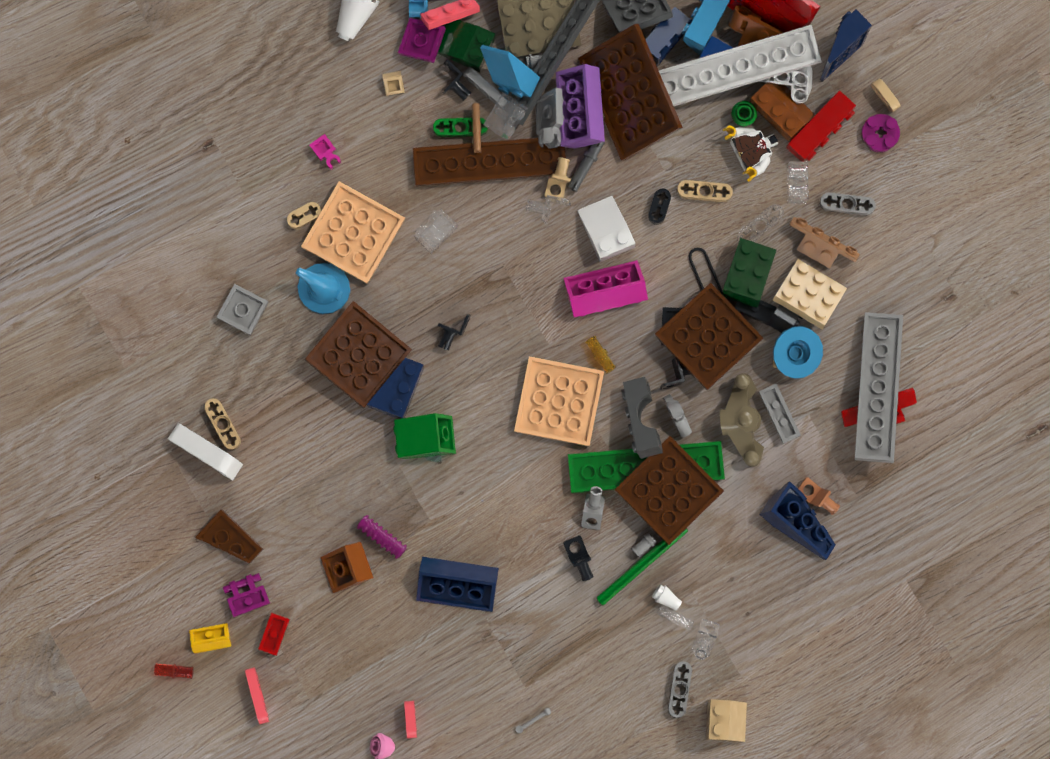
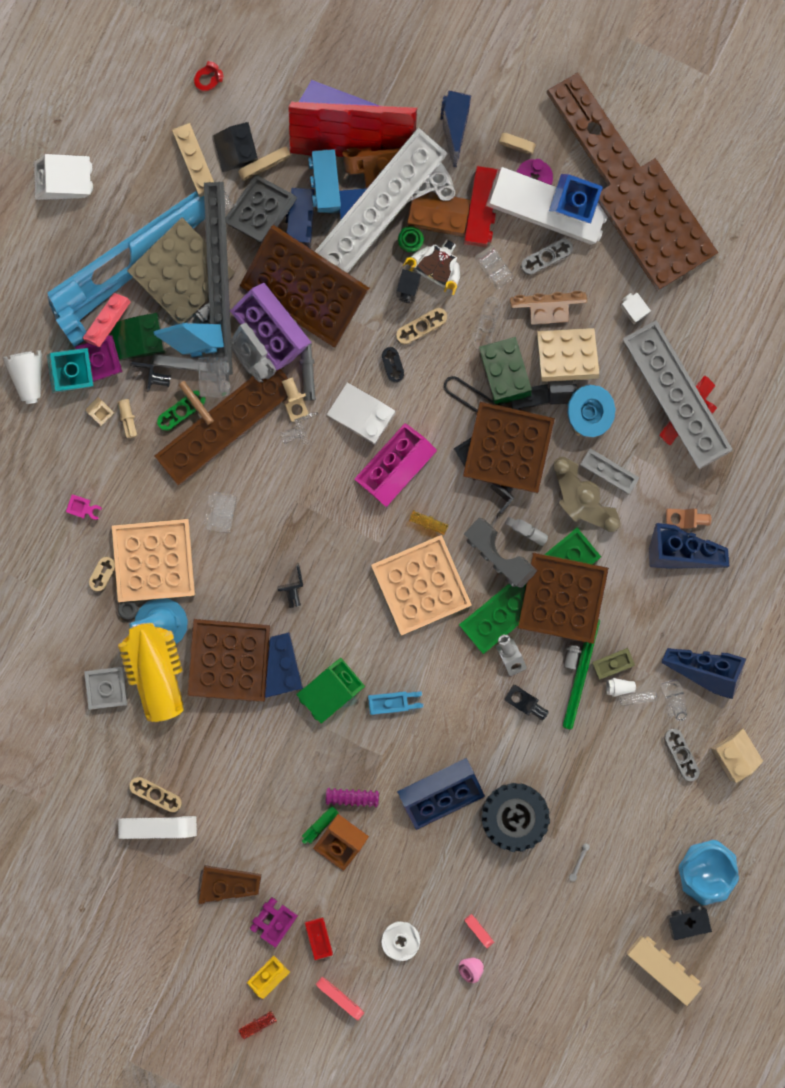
camera: 35 degrees left, 5 degrees up
(291, 319) = (153, 666): none -> yellow connector
(304, 259) = (128, 609): none -> dark grey tile
(330, 688) = (395, 950): none -> white plate
(338, 541) = (316, 829): none -> green piece
(392, 33) = (69, 370): none -> teal slope
(411, 103) = (127, 418): none -> tan axle
(469, 481) = (392, 702): none -> dark azure hinge
(512, 624) = (510, 796): none -> black wheel
(674, 574) = (613, 663): none -> olive plate
(716, 149) = (408, 286): none -> black brick
(754, 640) = (713, 672): none -> dark blue wedge
(876, 162) = (531, 202): none -> white brick
(892, 294) = (634, 307): none -> white brick
(902, 169) = (575, 198): none -> blue brick
(955, 207) = (638, 198): none -> reddish brown piece

